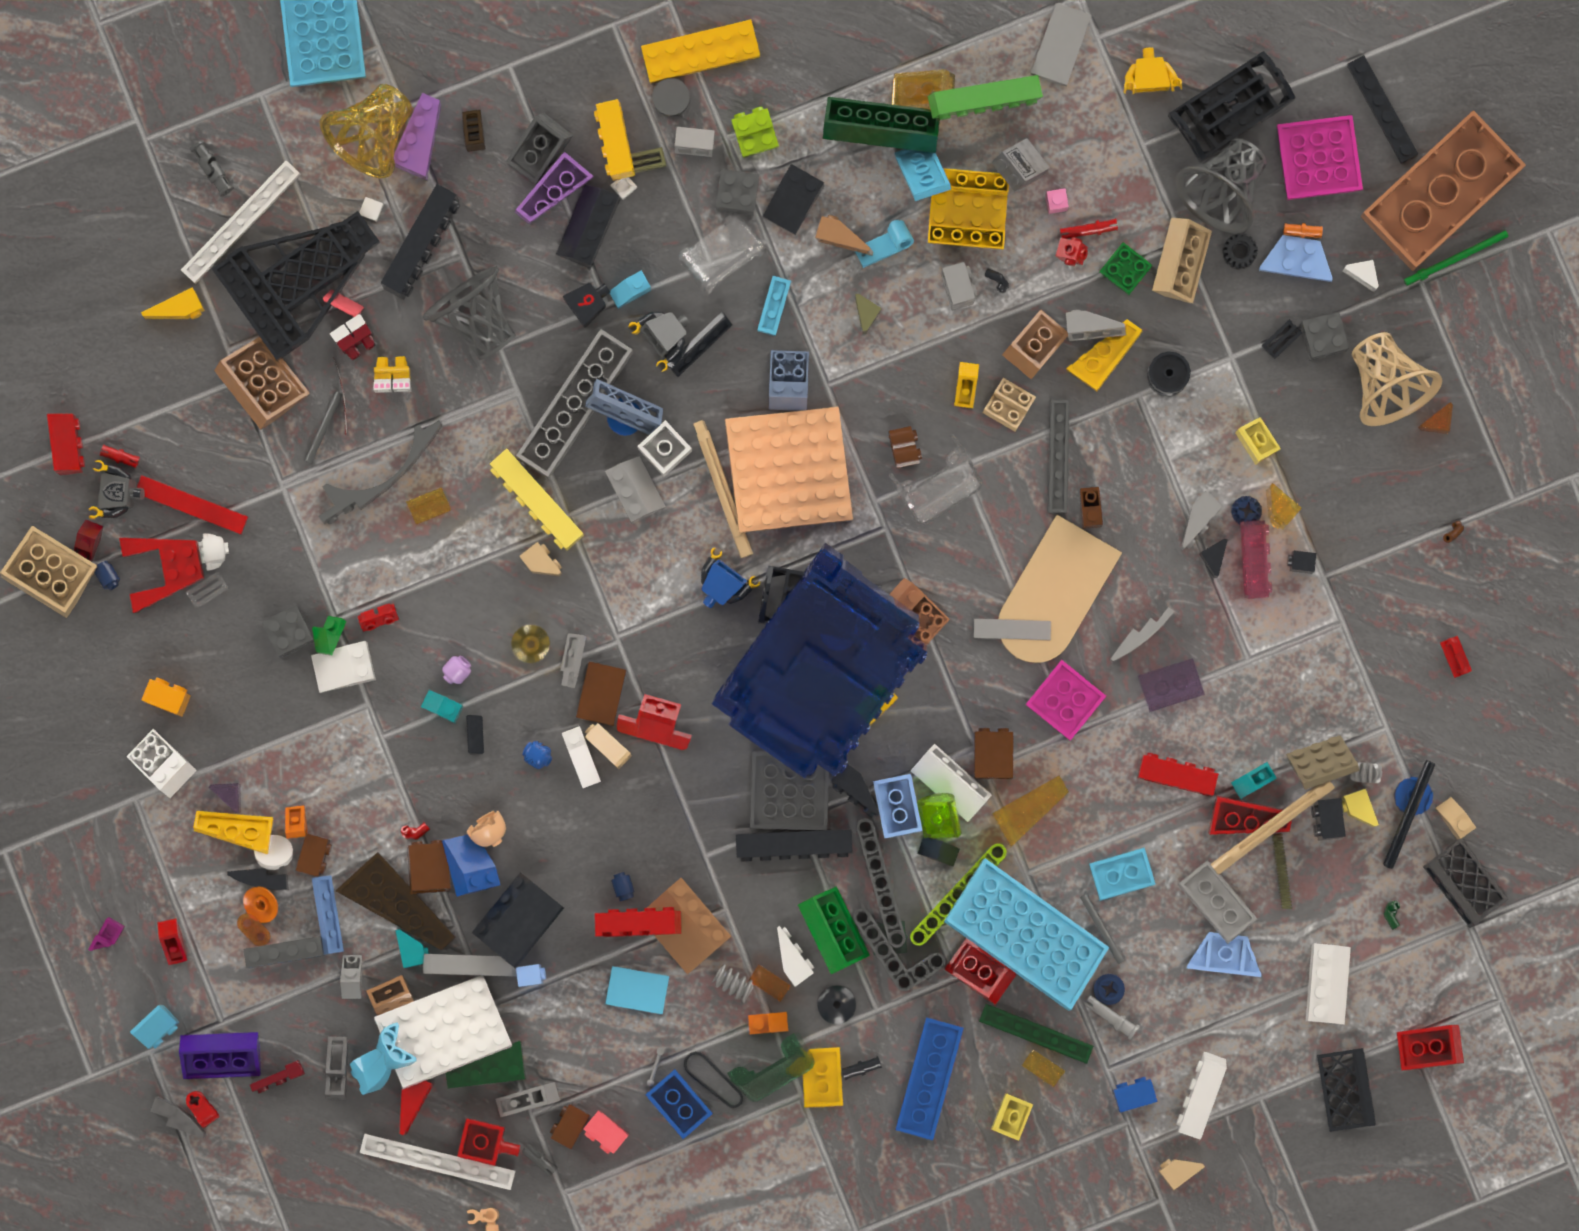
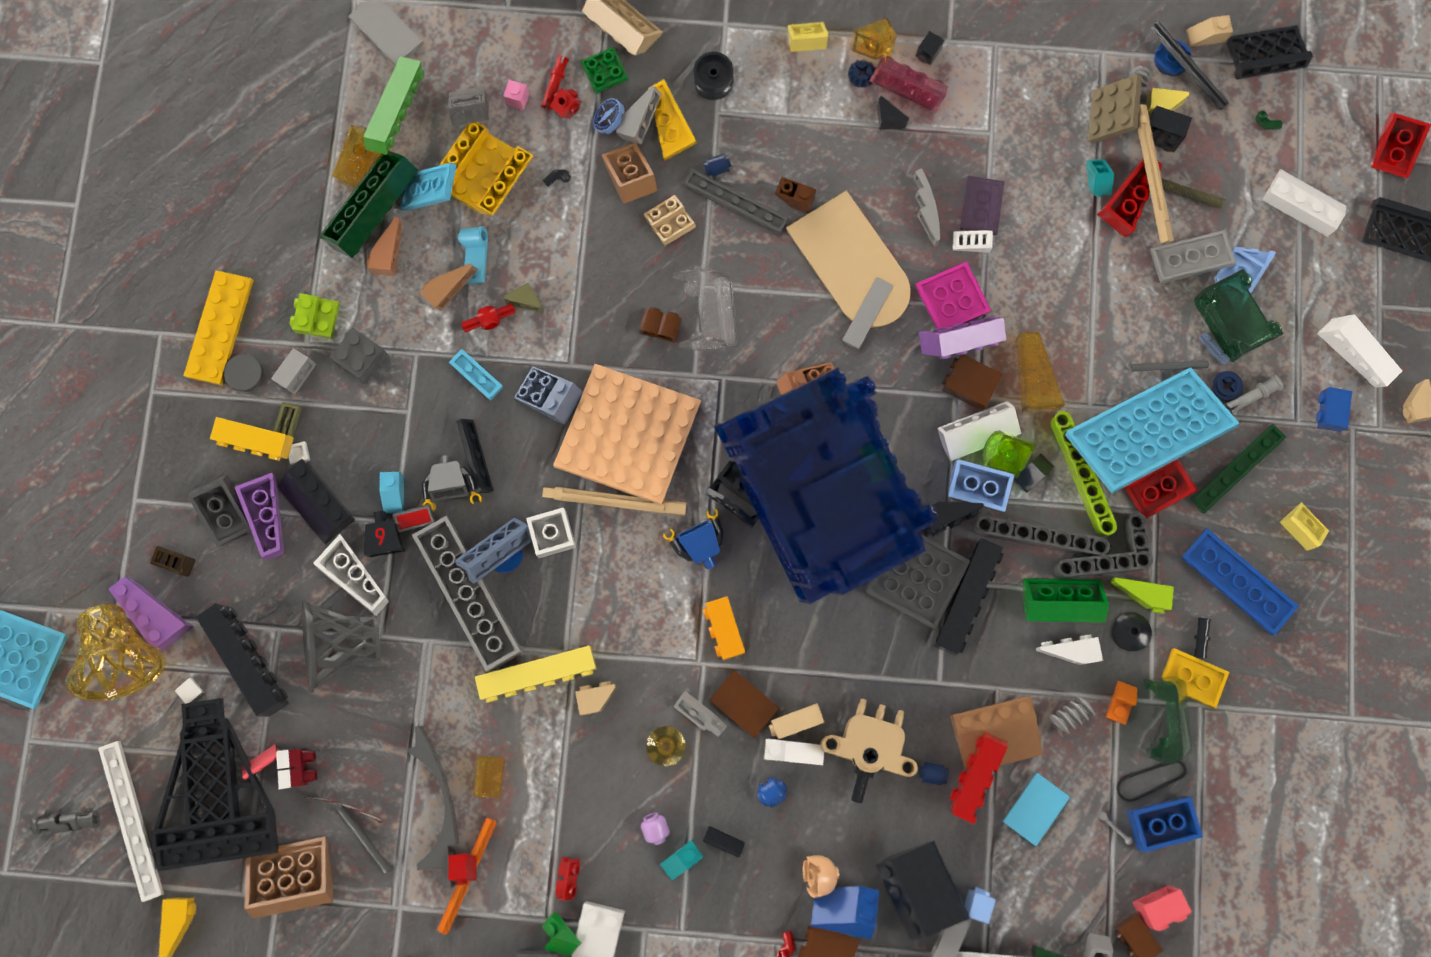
camera: 60 degrees left, 5 degrees down
(337, 531) = (460, 890): none -> orange axle
(342, 523) = (462, 868): none -> red brick
(400, 373) = (345, 755): hips -> none
(540, 290) = (347, 572): none -> white wedge
(617, 321) = (414, 518): none -> tile
(630, 821) = (875, 736): none -> tan piece
(635, 489) = (573, 579): light grey slope -> none
(655, 723) = (796, 667): red plate -> none
(657, 643) = (723, 628): none -> light orange brick
(721, 253) = (404, 396): clear windscreen -> none
(769, 983) = (1085, 682): clear orange slope -> none
(793, 199) = (391, 311): black slope -> none
(832, 288) = (488, 317): none -> red axle
(845, 163) = (385, 252): none -> nougat slope
(876, 1003) = (1149, 595): none -> lime slope
(958, 285) = (544, 208): light grey brick -> none
(966, 385) = (633, 245): yellow slope -> none
(1029, 726) = (963, 337): none -> wedge
(1043, 1068) = (1273, 477): clear yellow panel -> none
(1079, 297) = (608, 116): none -> tile
(1084, 421) = (717, 165): none -> dark blue brick
(1122, 874) = (1128, 326): medium azure tile -> none
(1139, 962) = (1214, 348): none -> sand blue axle
(1142, 704) = (988, 235): none -> white slope
(1177, 775) = (1065, 236): red brick -> none
(1177, 966) = (1235, 316): none -> clear green windscreen
(1200, 514) = (847, 110): light grey slope -> none

